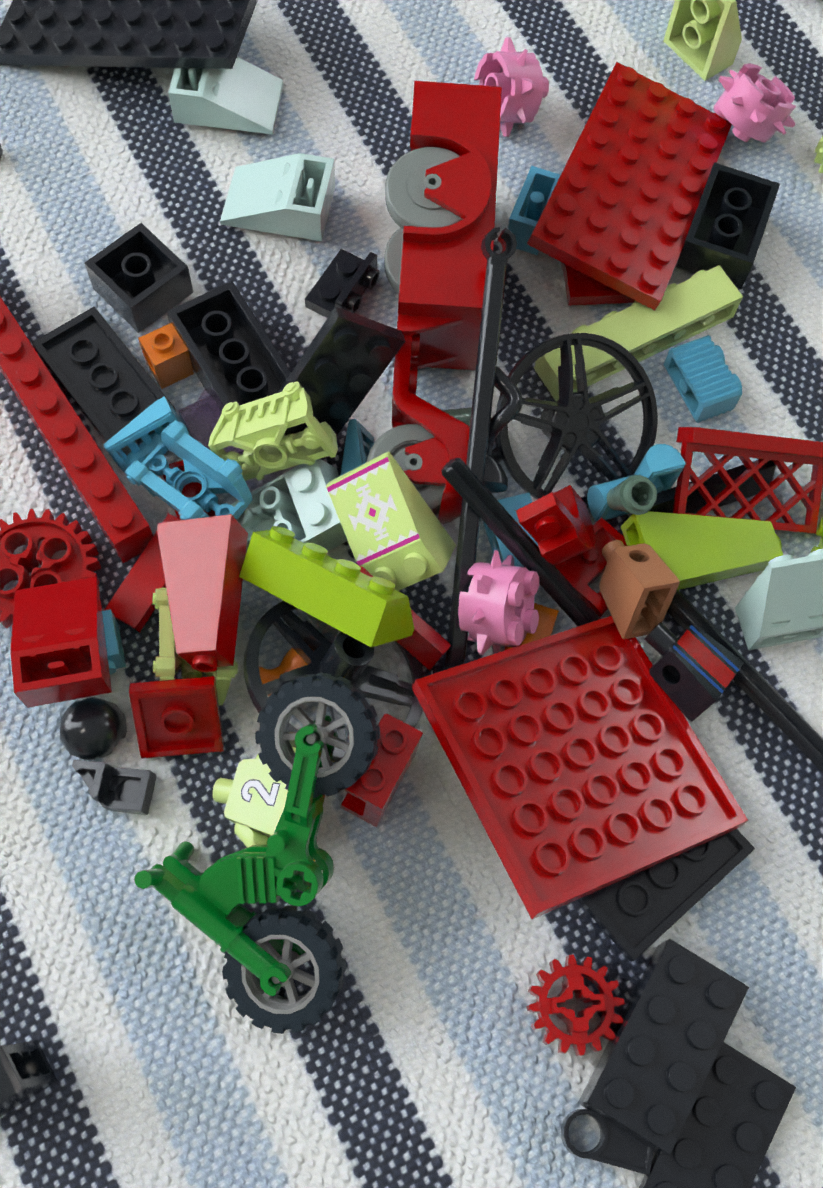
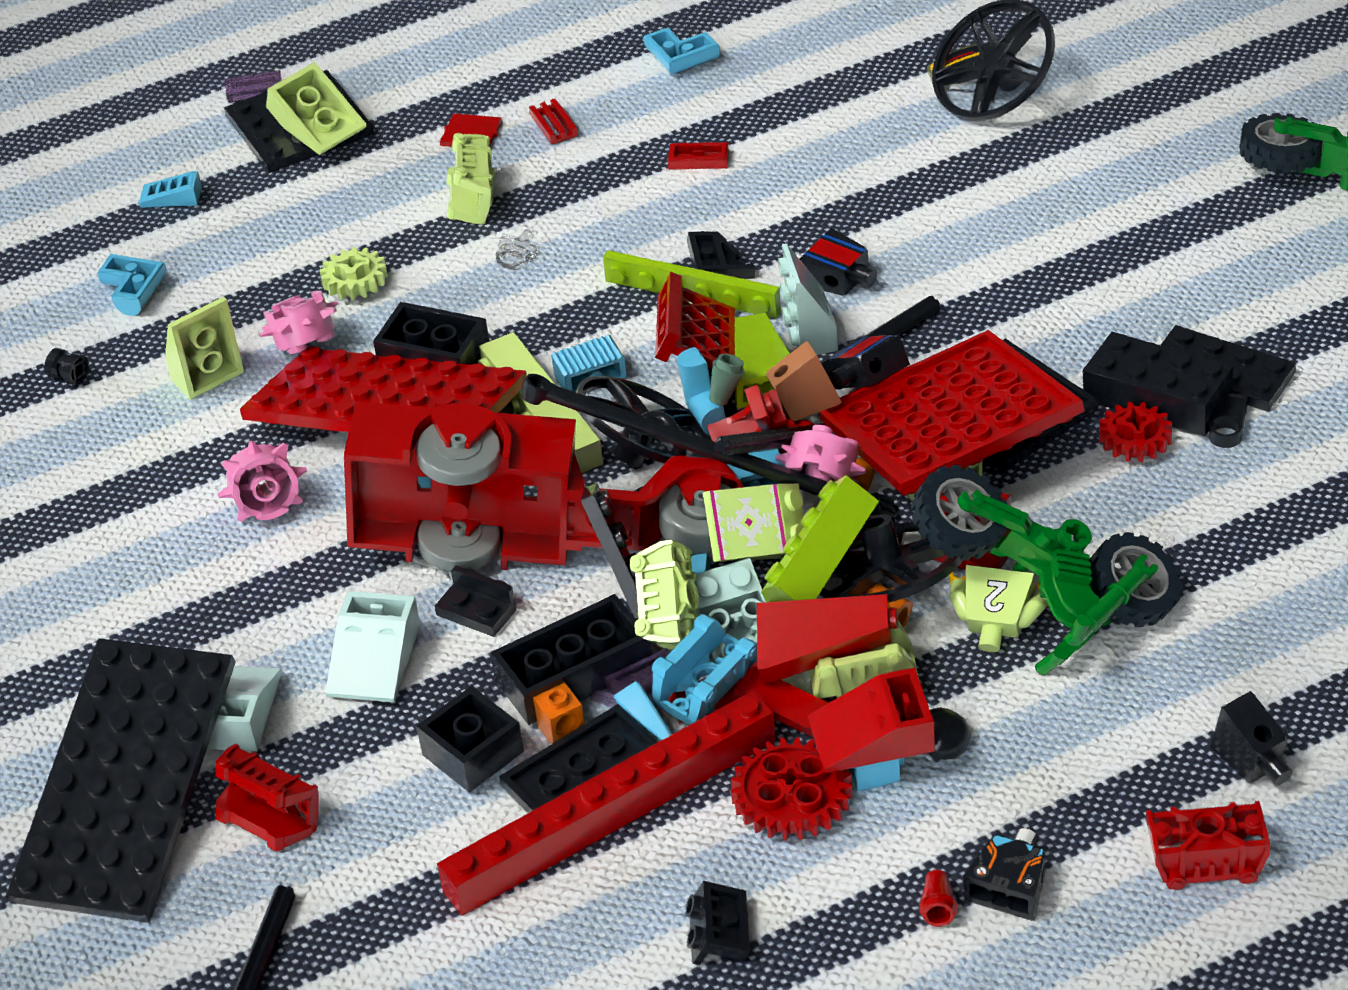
camera: 80 degrees left, 25 degrees down
(94, 115) = (265, 799): none -> red piece
(116, 787) = (992, 713): slope -> none
(176, 717) = (933, 662): red tile -> none

